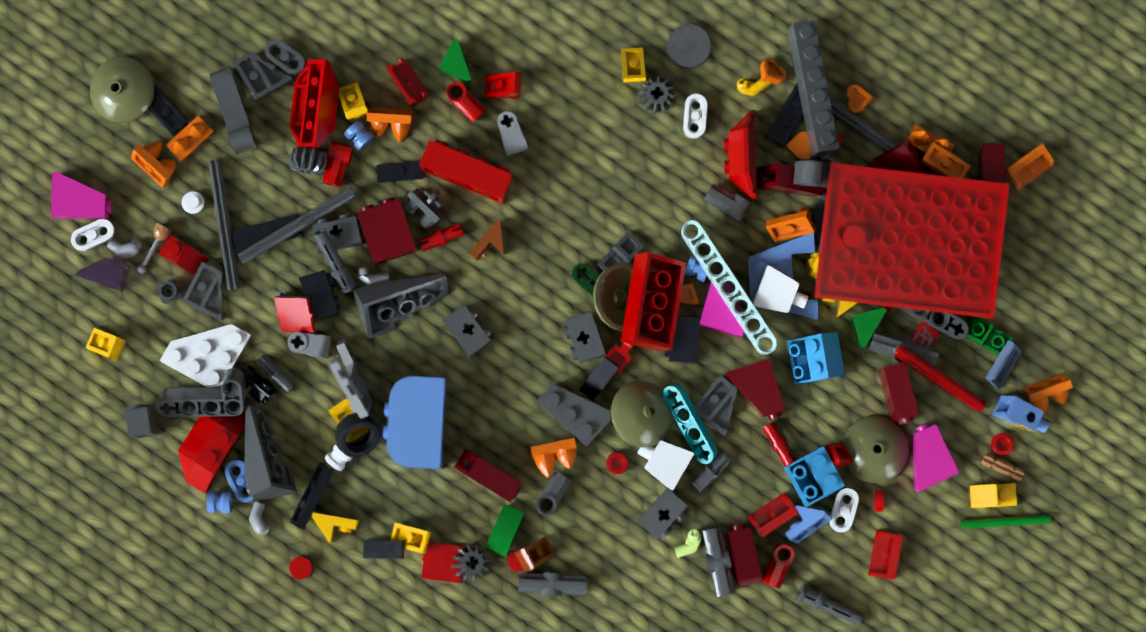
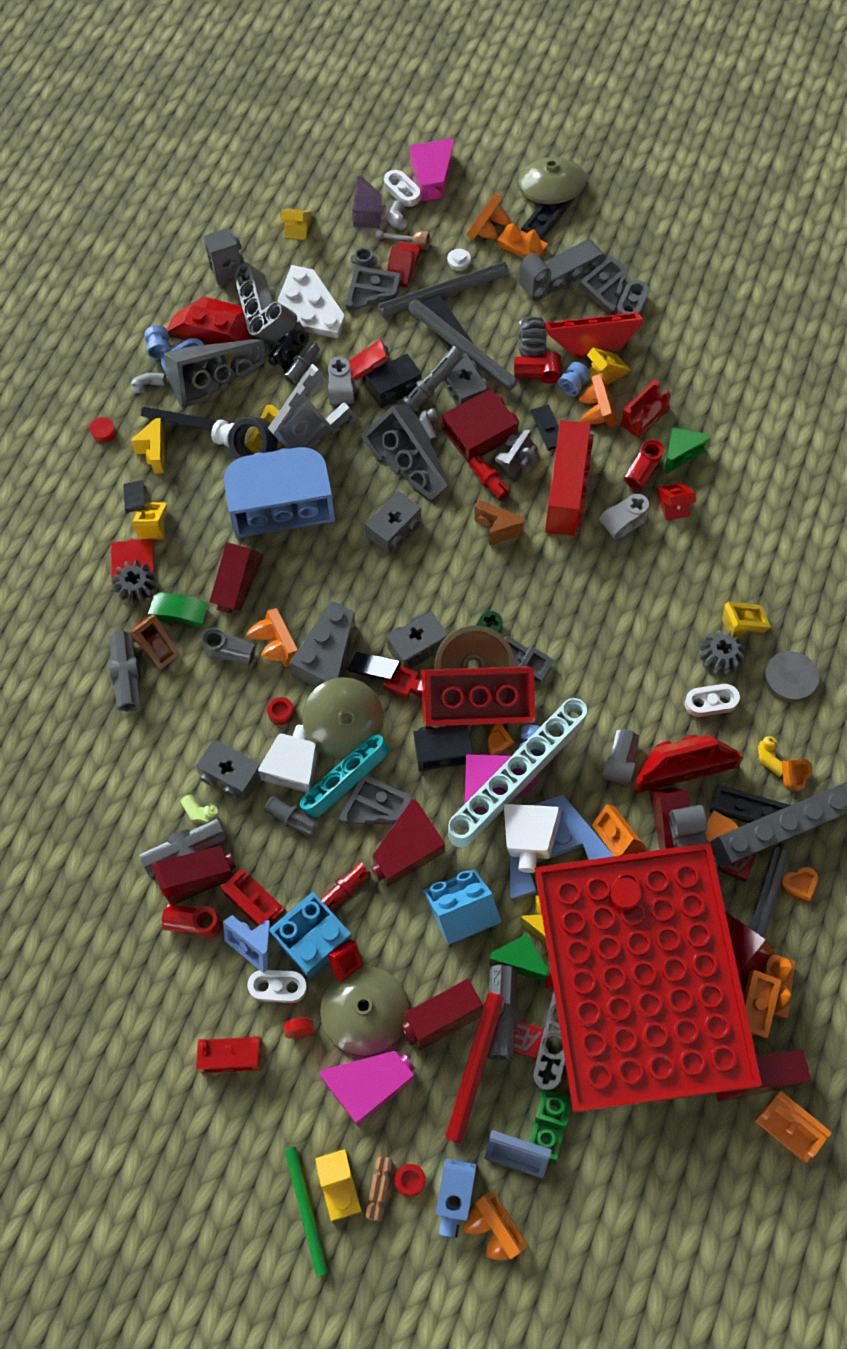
camera: 80 degrees right, 20 degrees down
(819, 601) = (154, 984): dark grey pin -> none

